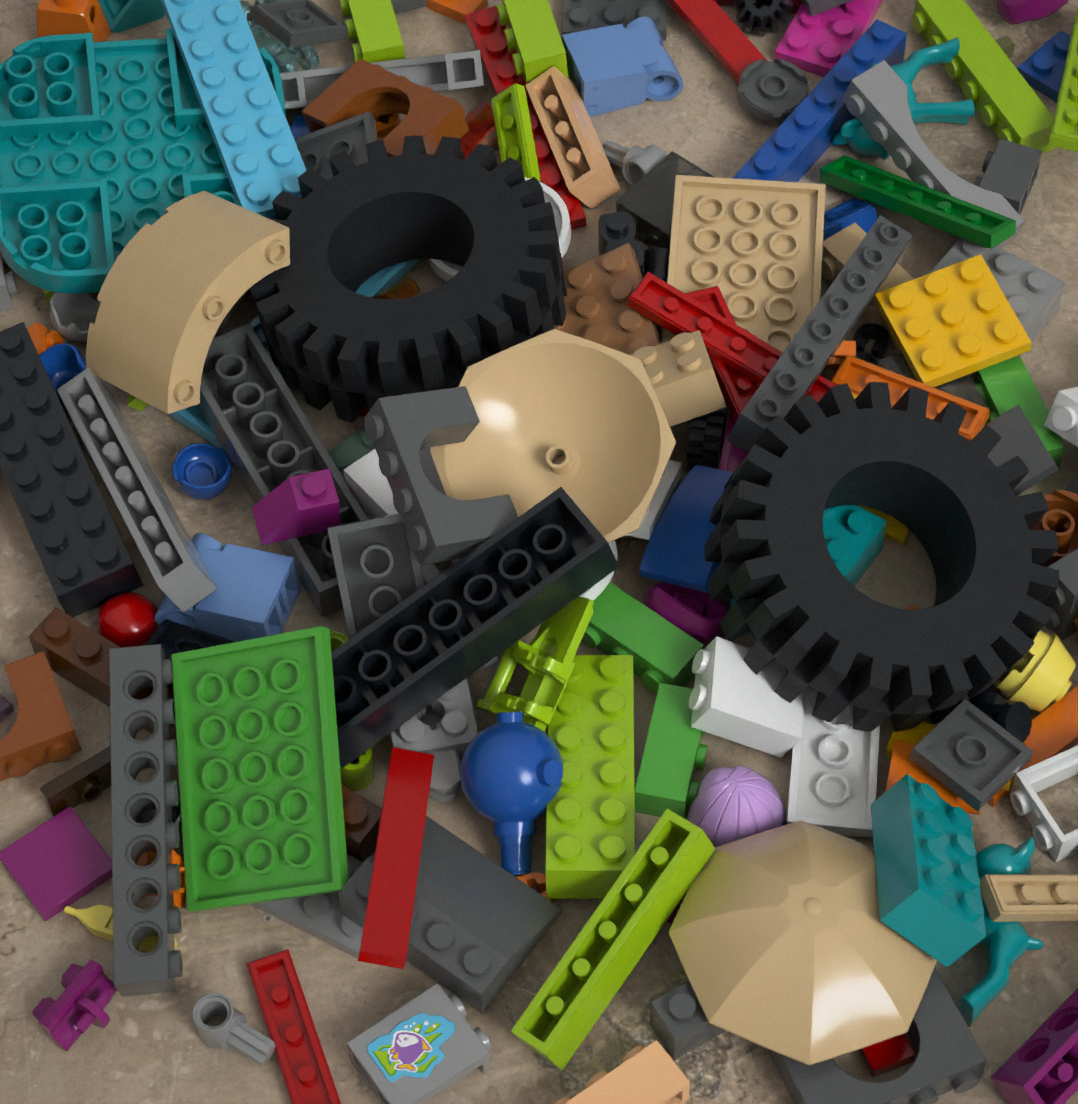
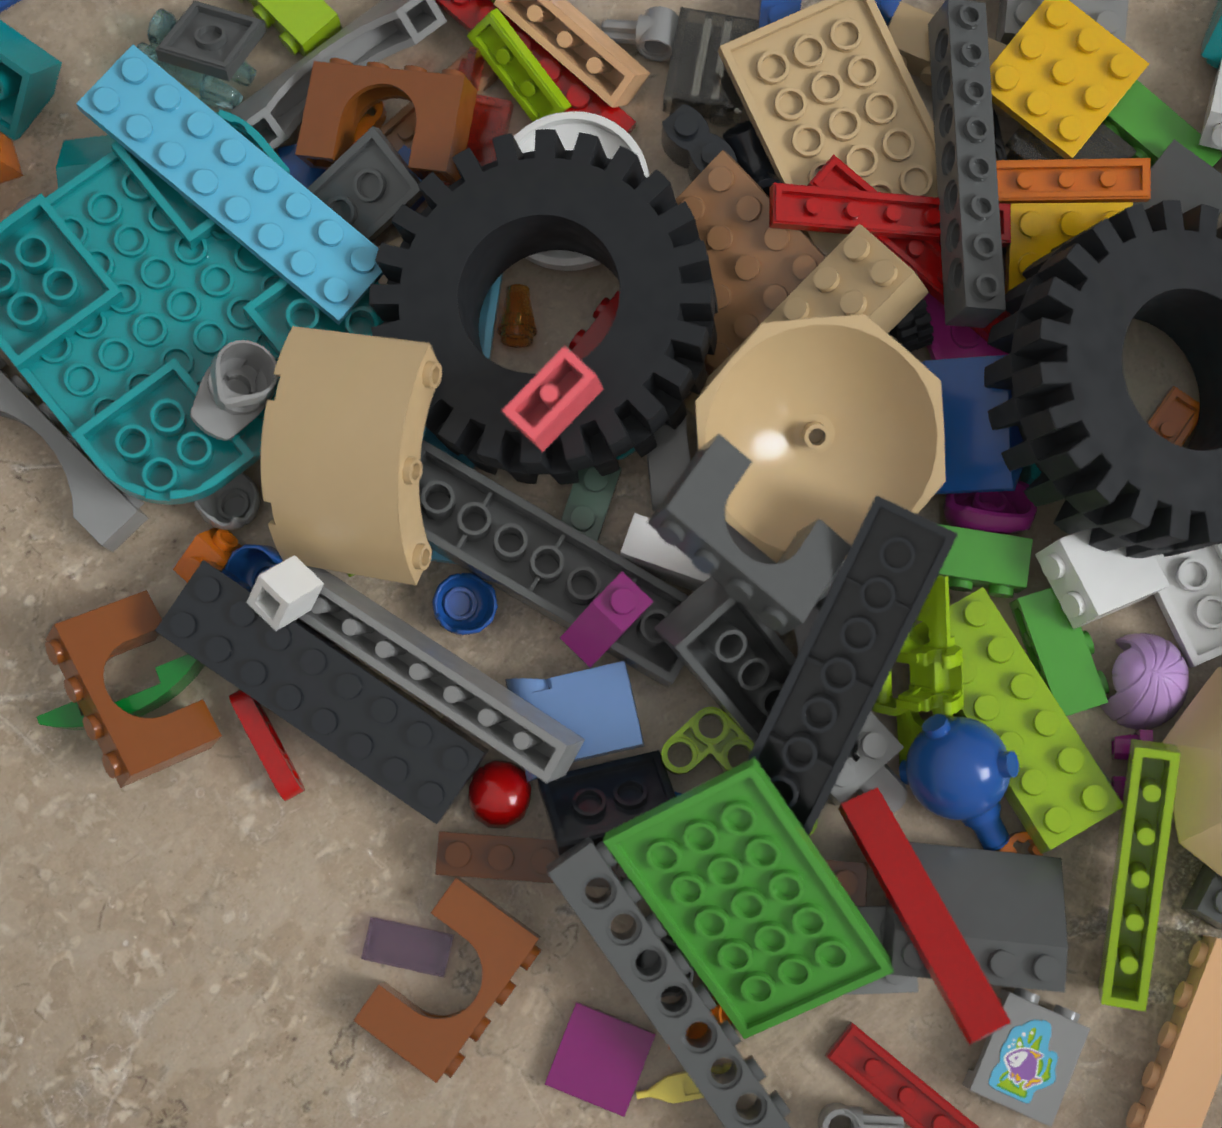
camera: 30 degrees left, 25 degrees up
(65, 368) = (285, 592): none -> white brick
(79, 784) = (575, 976): dark brown plate -> none
(133, 204) = (234, 389): none -> light grey helmet
(352, 301) = (553, 399): none -> coral brick

